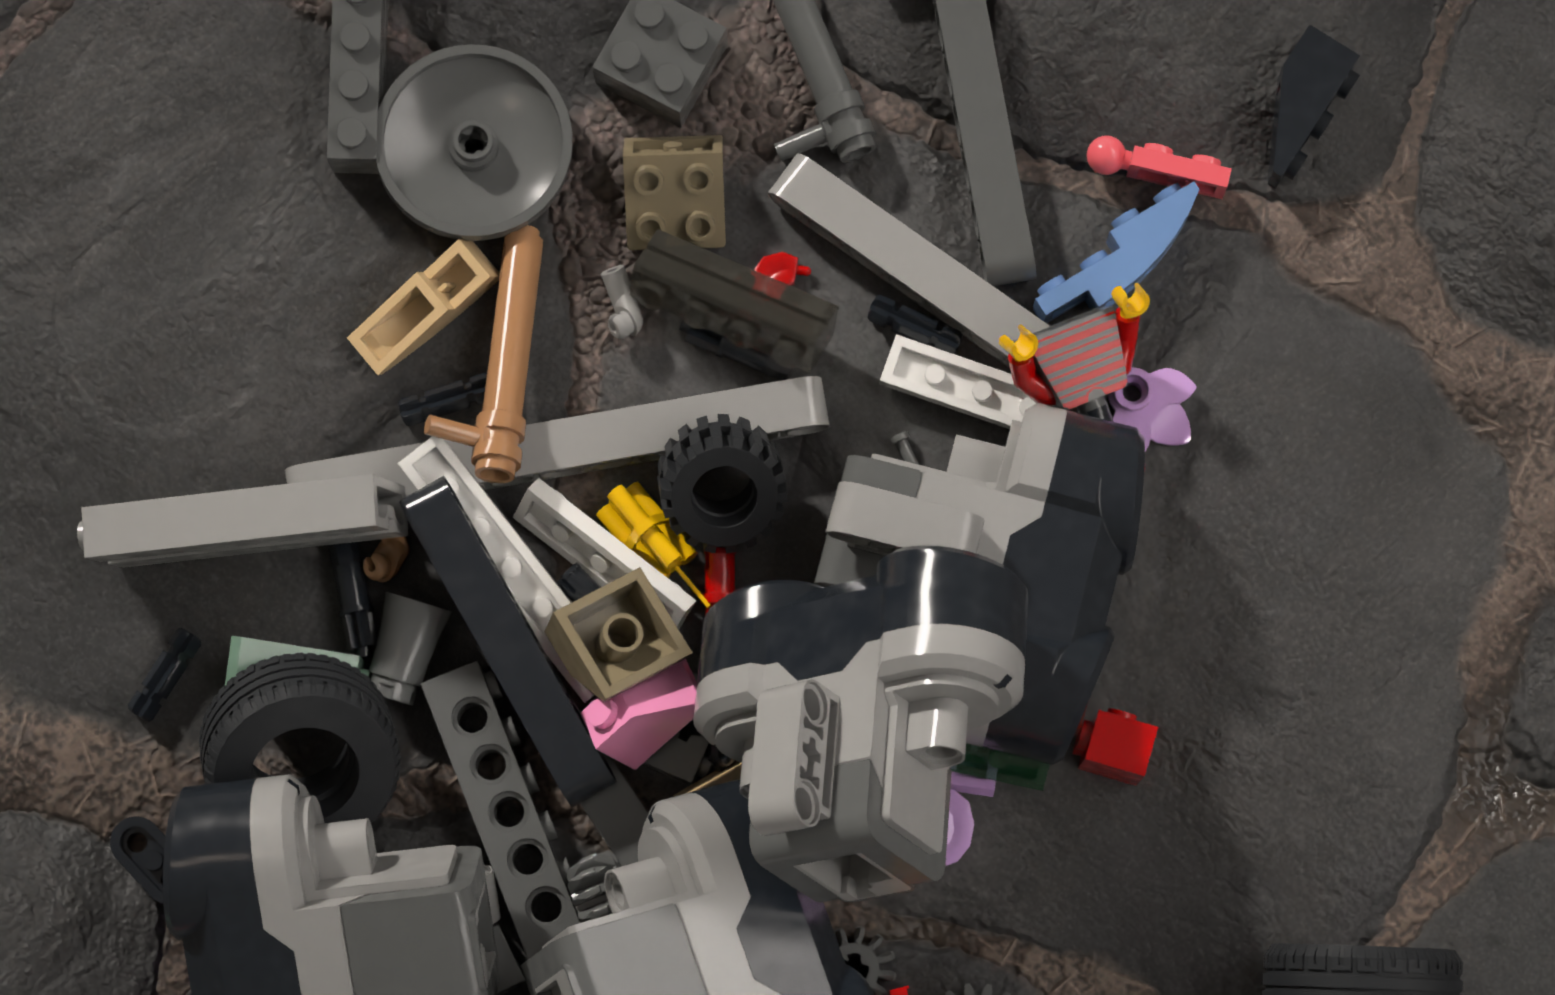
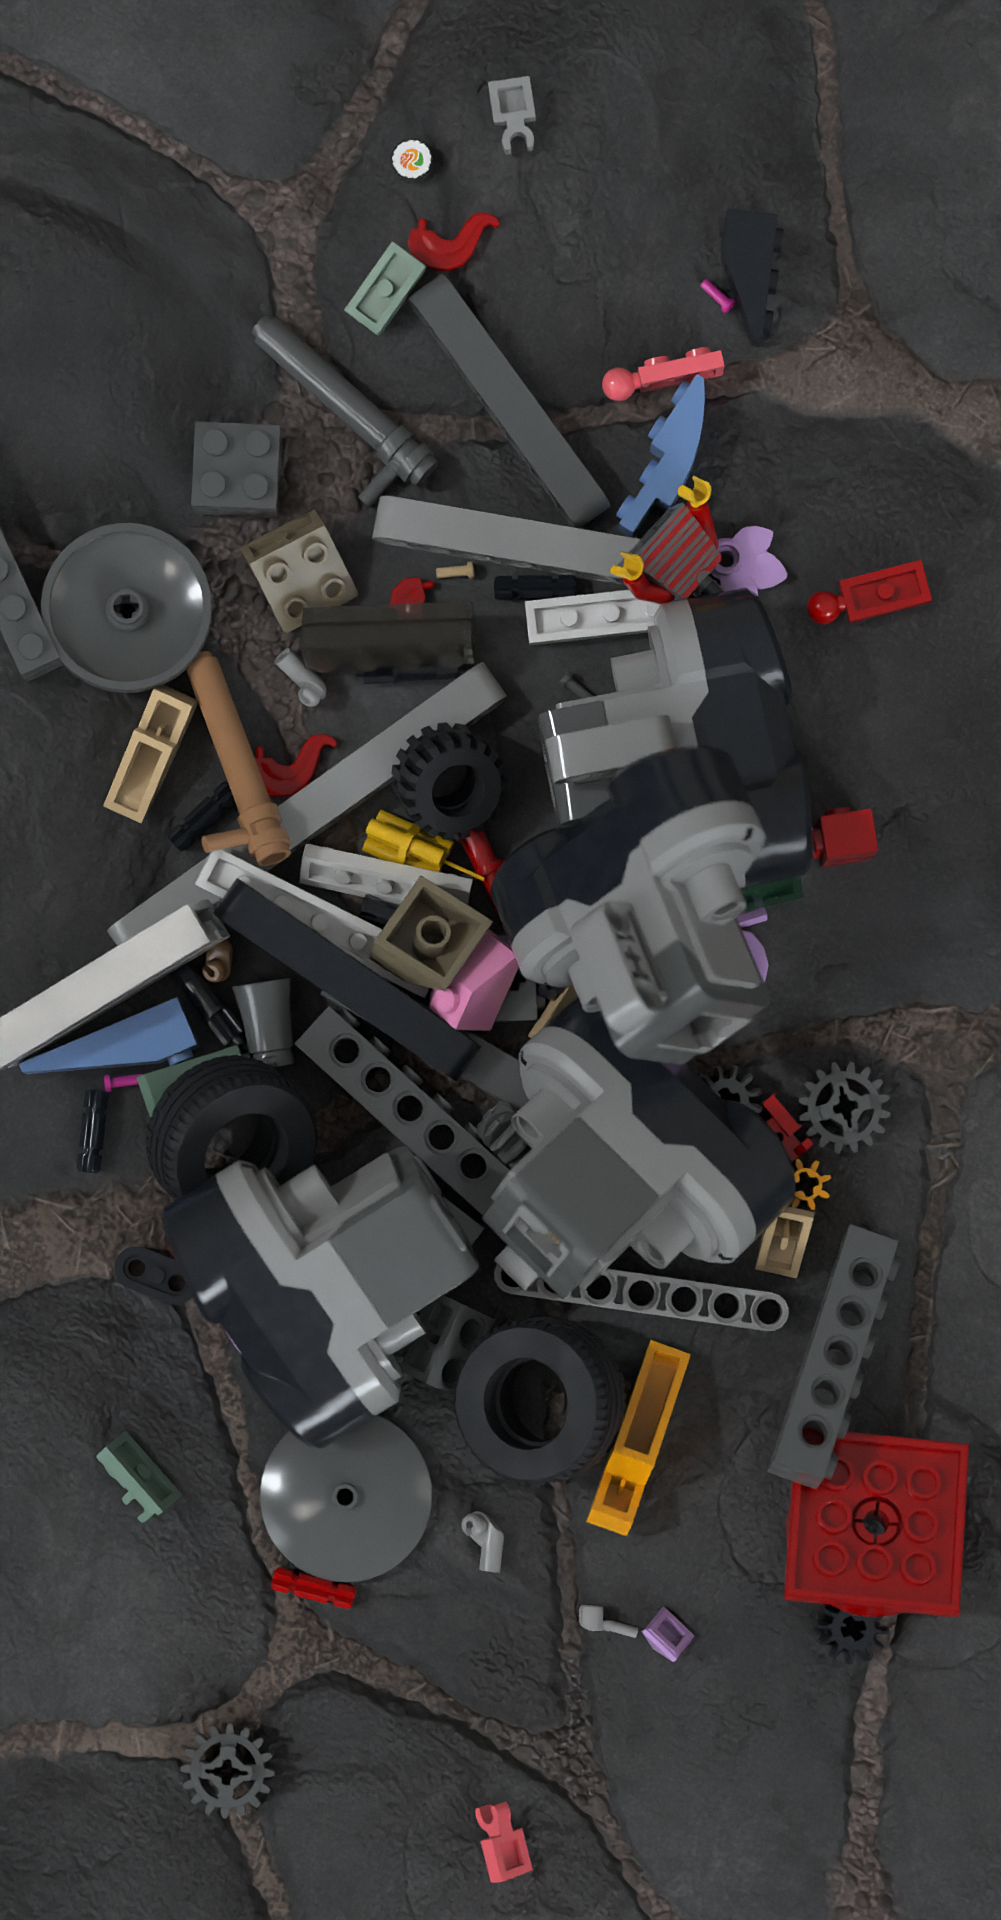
camera: 25 degrees left, 5 degrees up
(216, 635) = (121, 1081): none -> dark pink piece
(267, 602) = (142, 1039): none -> medium blue slope
(551, 402) = (288, 780): none -> red piece
(840, 270) = (455, 571): none -> tan piece
(1261, 125) = (718, 296): none -> dark pink piece
(1271, 503) = (873, 594): none -> red plate

